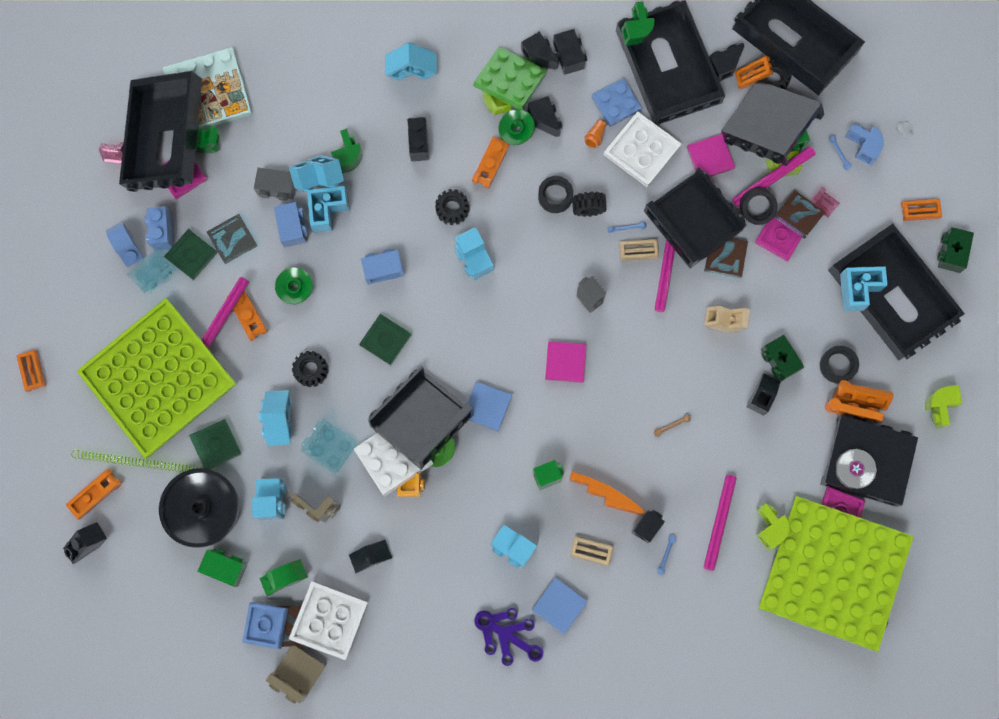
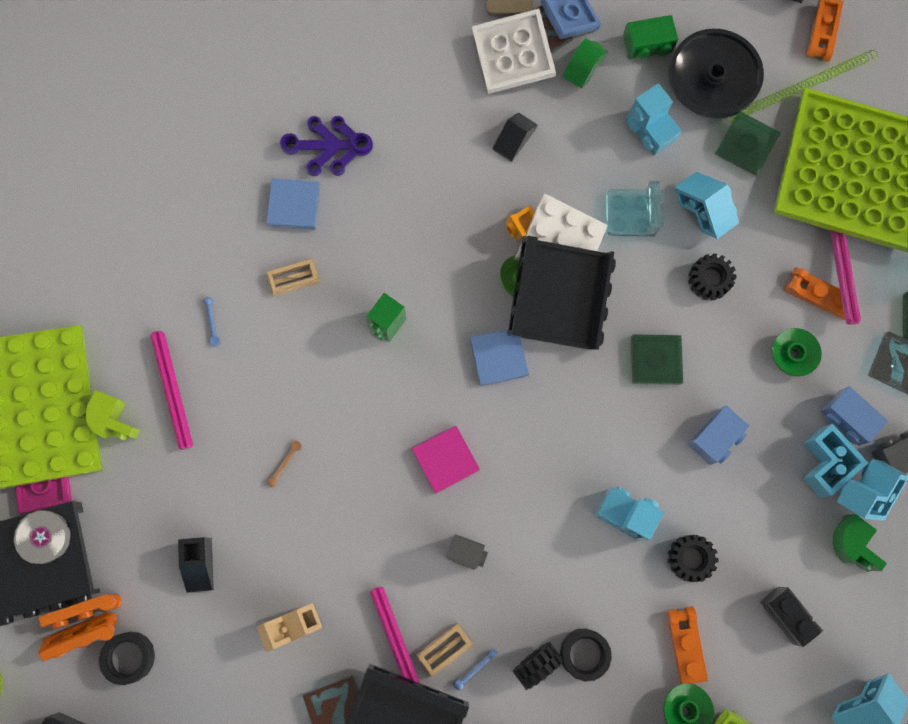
camera: 140 degrees right, 0 degrees up
(327, 509) = (605, 136): dark tan bracket -> none
(513, 546) = (374, 228): medium azure brick -> none
(613, 498) = (301, 342): orange slope -> none
(648, 525) = (245, 334): black slope -> none
(782, 348) = (184, 621): dark green brick -> none

